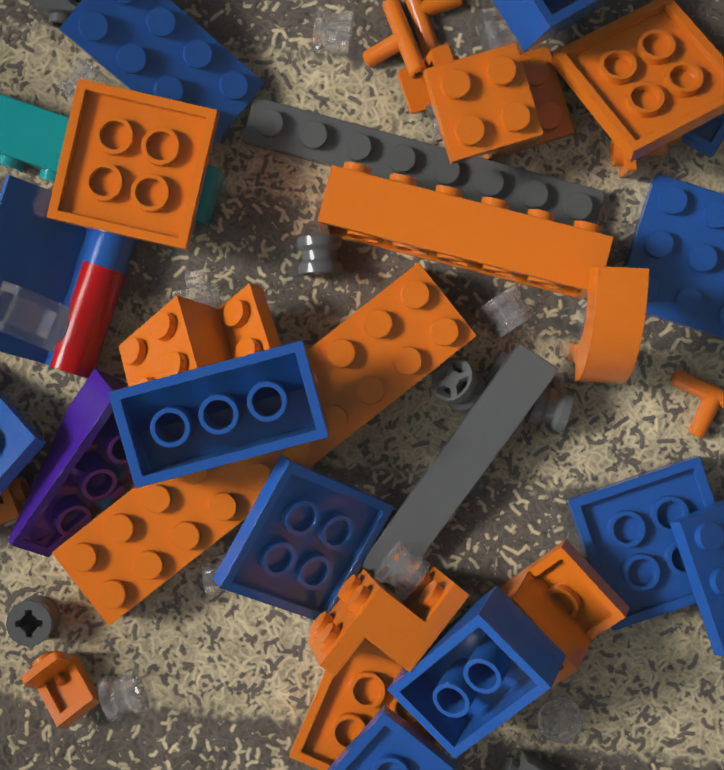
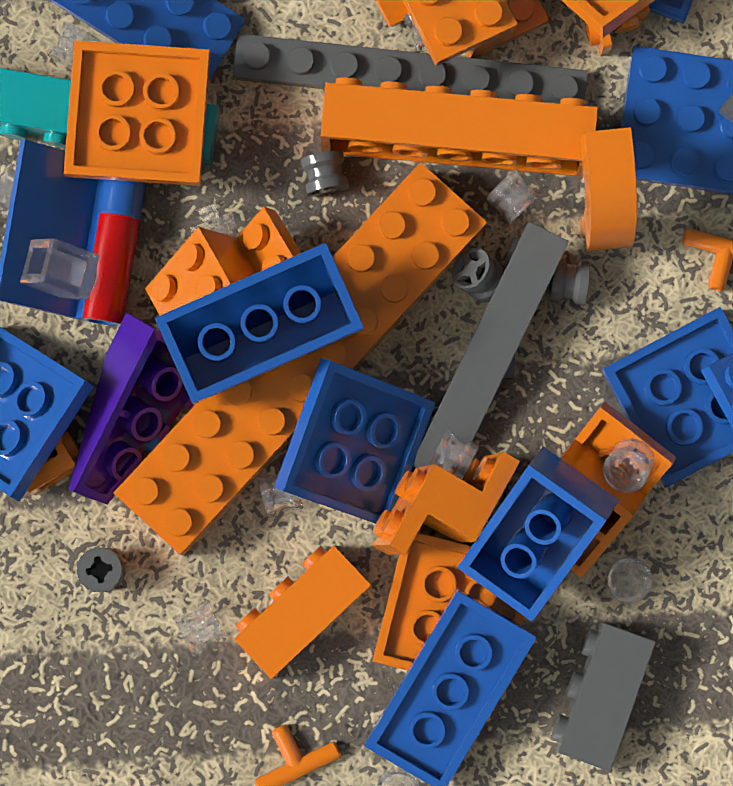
camera: 15 degrees left, 5 degrees down
(62, 686) = (139, 629): orange bracket -> none
(225, 695) = (300, 610): none -> orange brick
(589, 604) = (633, 455): none -> clear wheel

